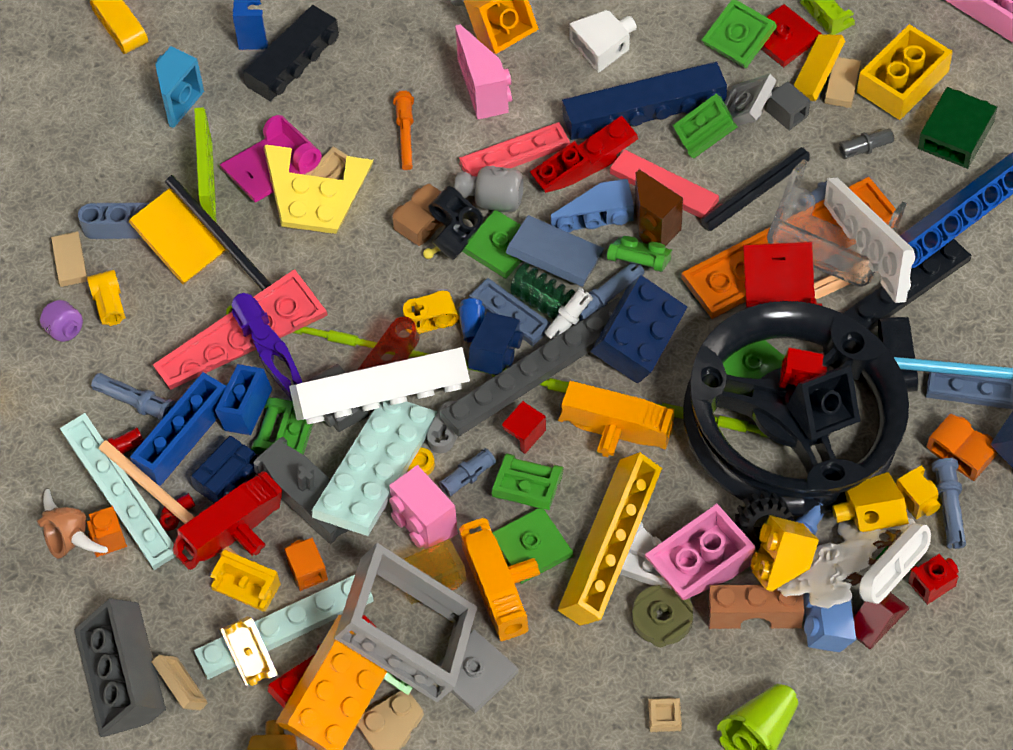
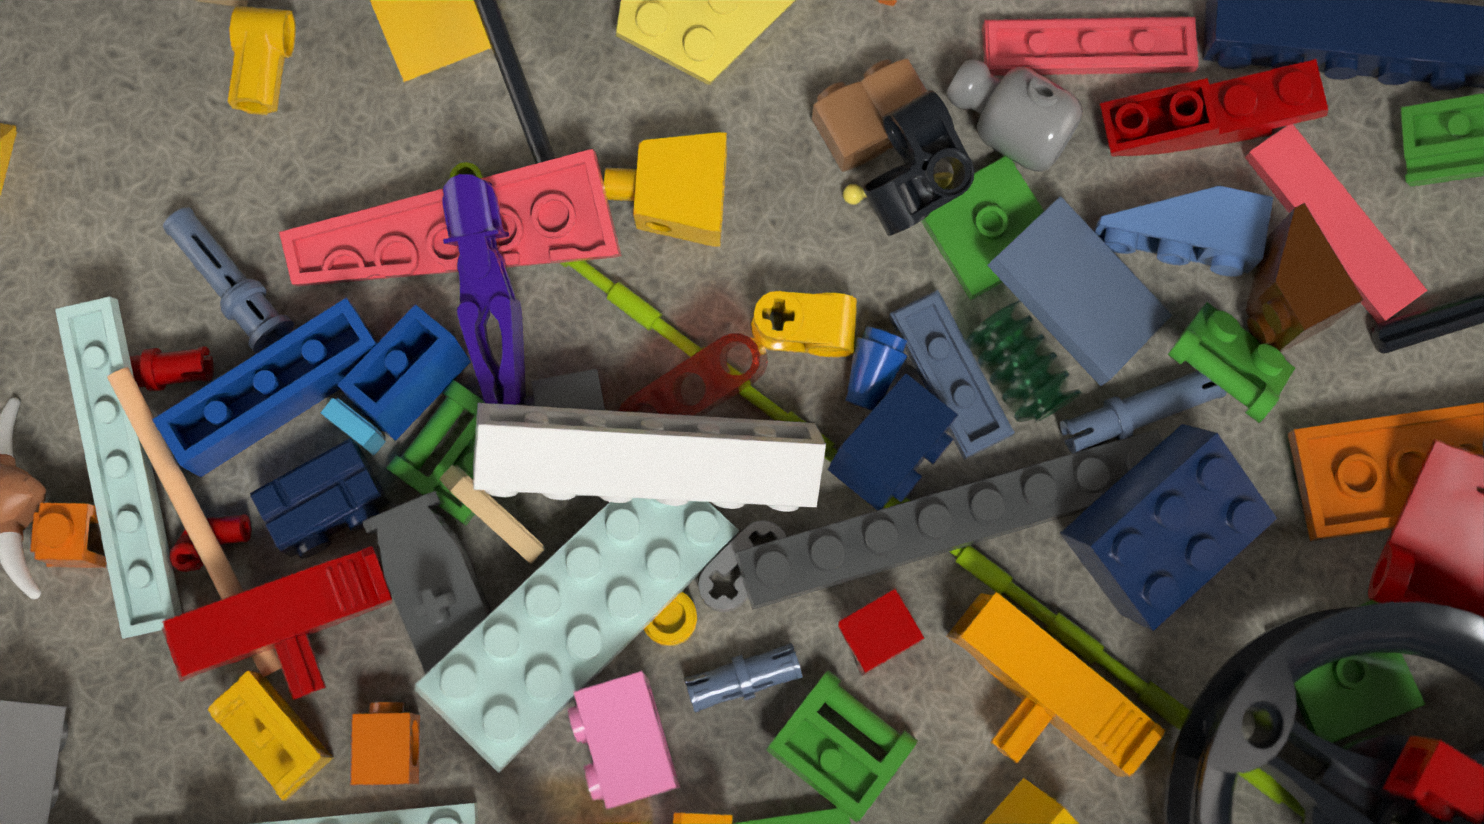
camera: 20 degrees right, 20 degrees up
(60, 319) = (160, 74): medium lavender head -> none
(221, 431) = (354, 425): none -> medium azure tile
(314, 441) = (492, 514): none -> tan tile
(342, 278) = (676, 186): none -> yellow torso
(569, 314) = (1051, 438): white pin -> none

